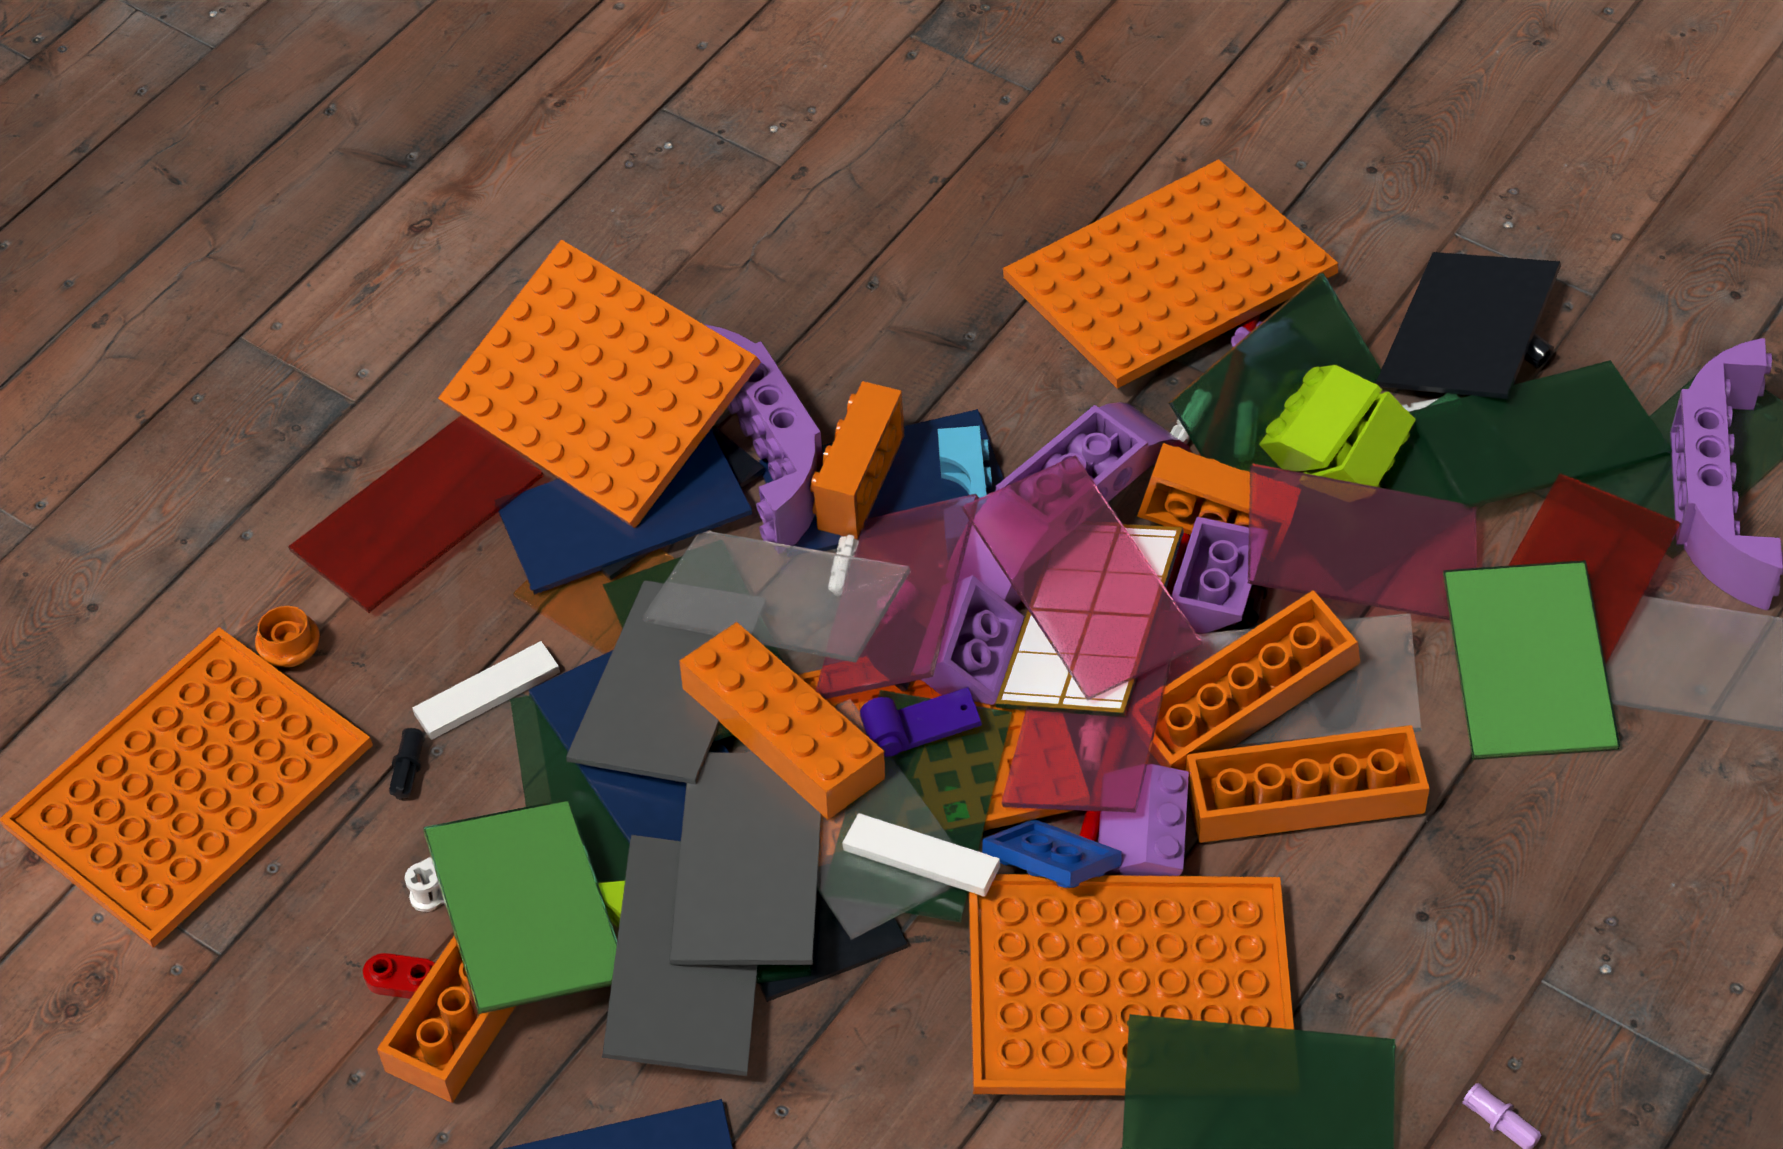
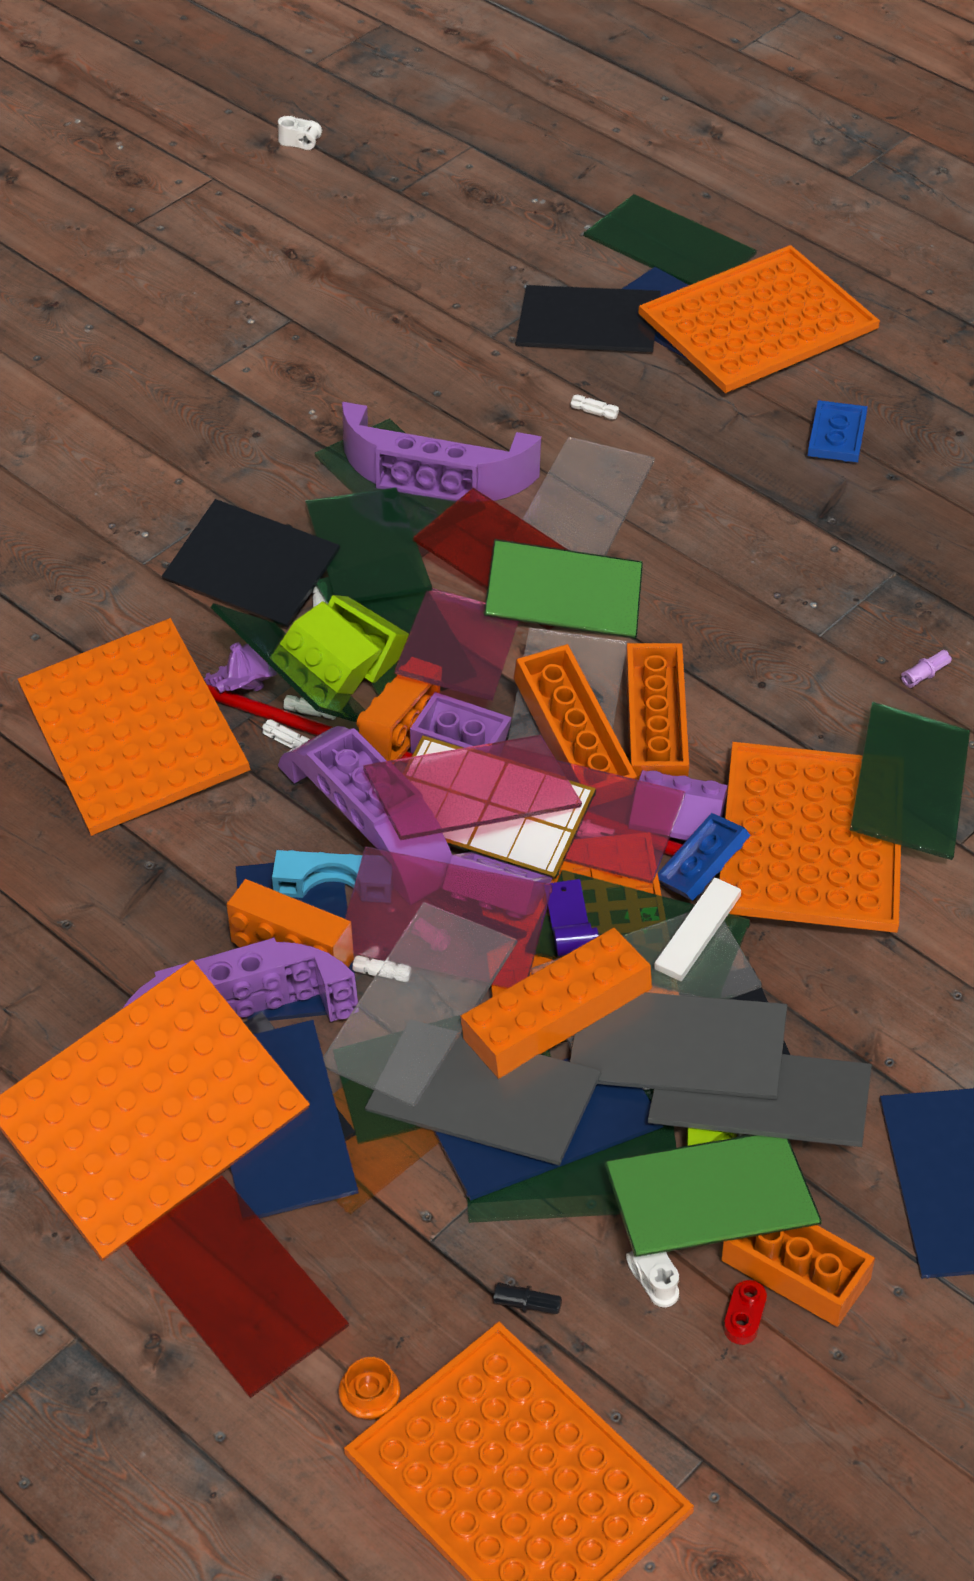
camera: 85 degrees left, 5 degrees down
(486, 690) = (456, 1237): white tile -> none

